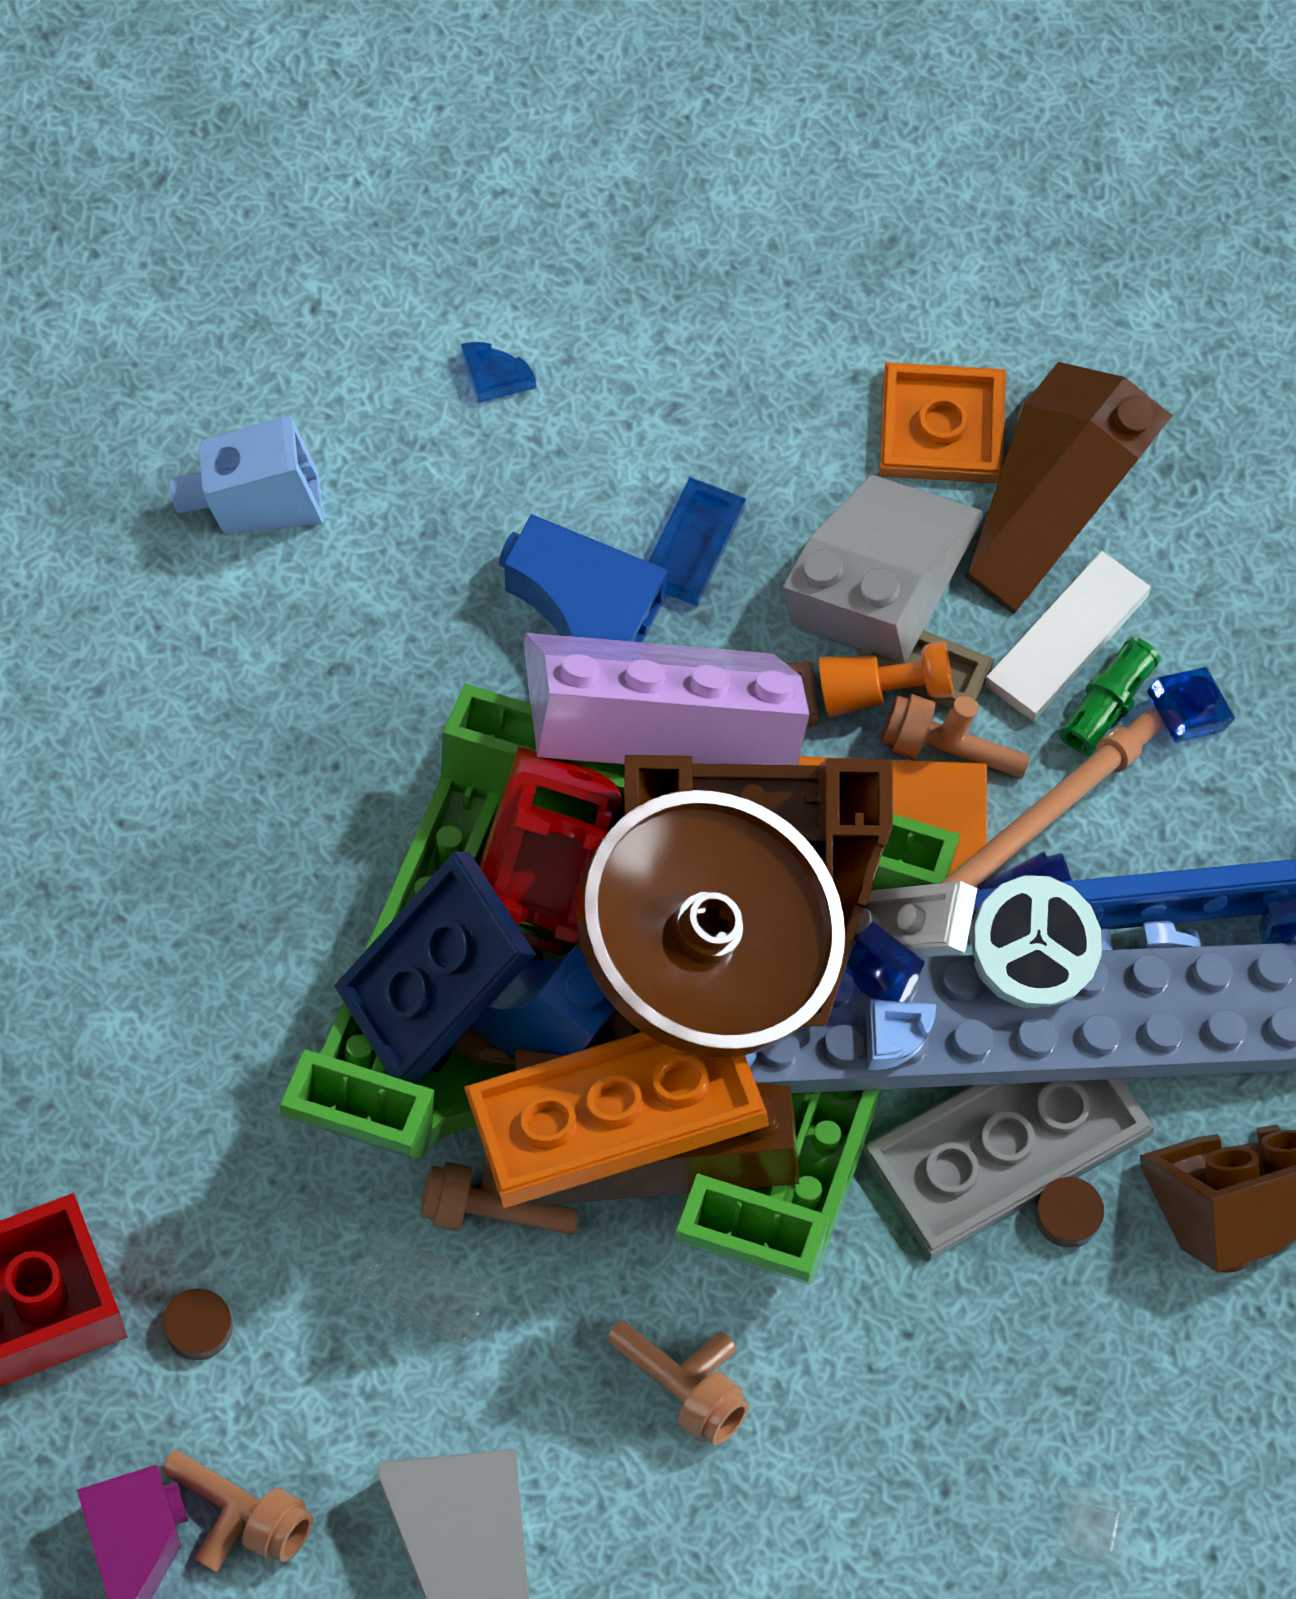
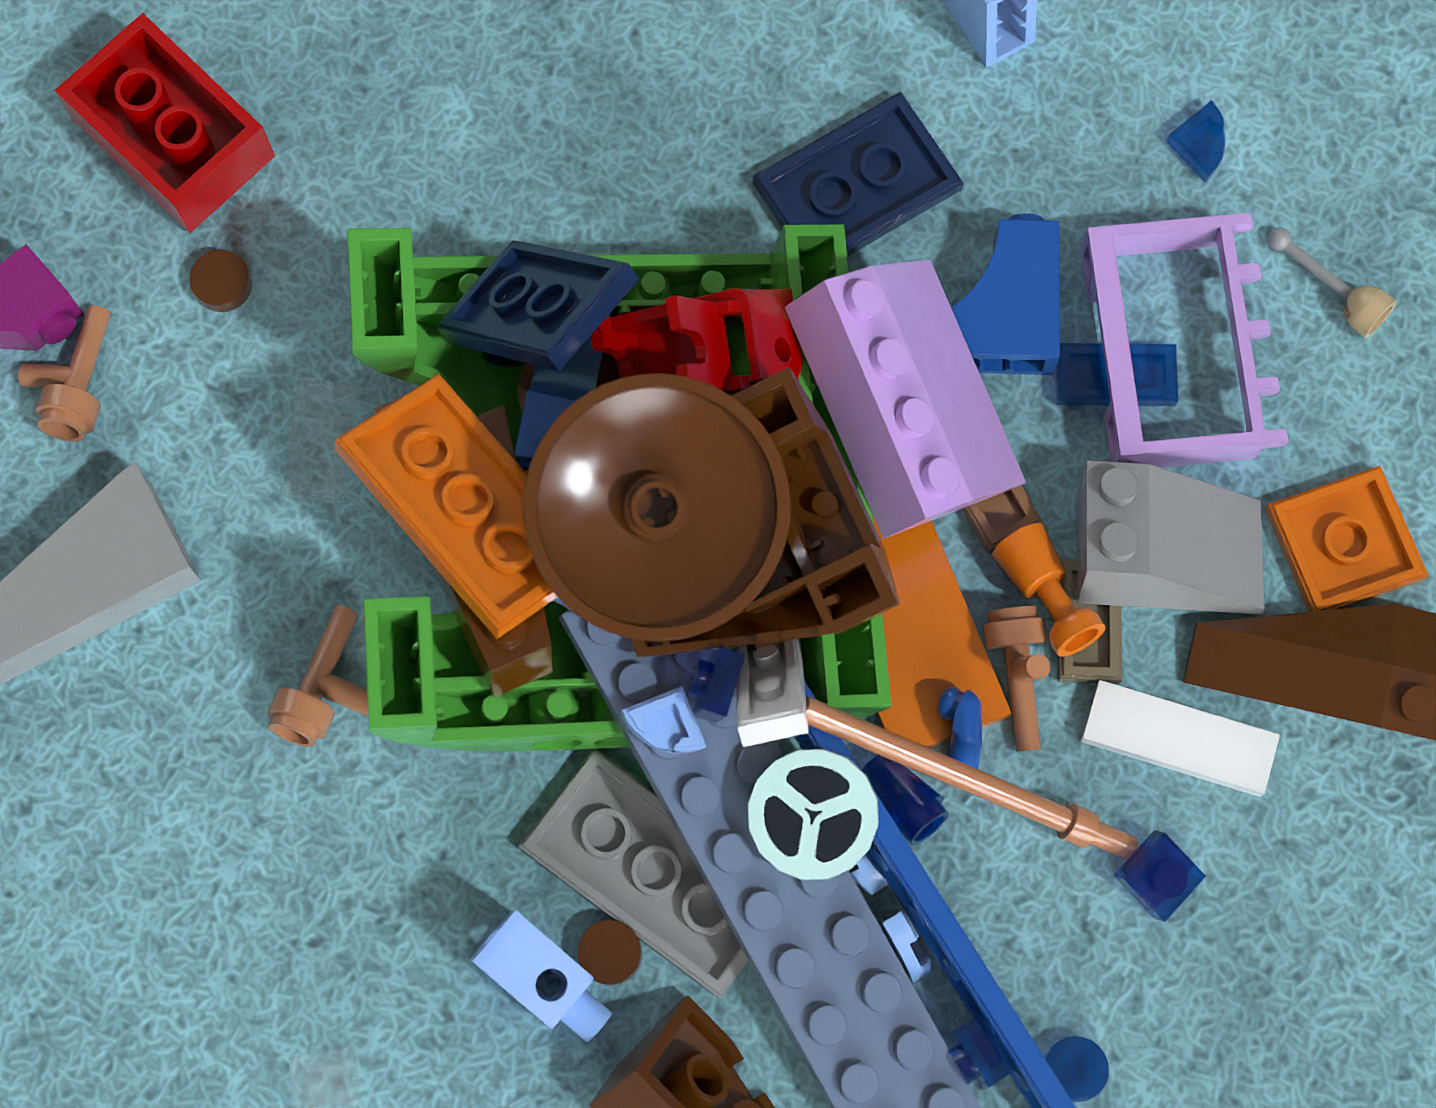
camera: 70 degrees right, 10 degrees up
(386, 681) = (862, 175): none -> dark blue tile
(727, 308) = (1363, 307): none -> hinge
(750, 549) = (1103, 288): none -> lavender hinge
(976, 796) = (966, 732): none -> blue arm
(1067, 1275) = (516, 957): none -> light blue torso
(1110, 695) = (1135, 798): green pin -> none

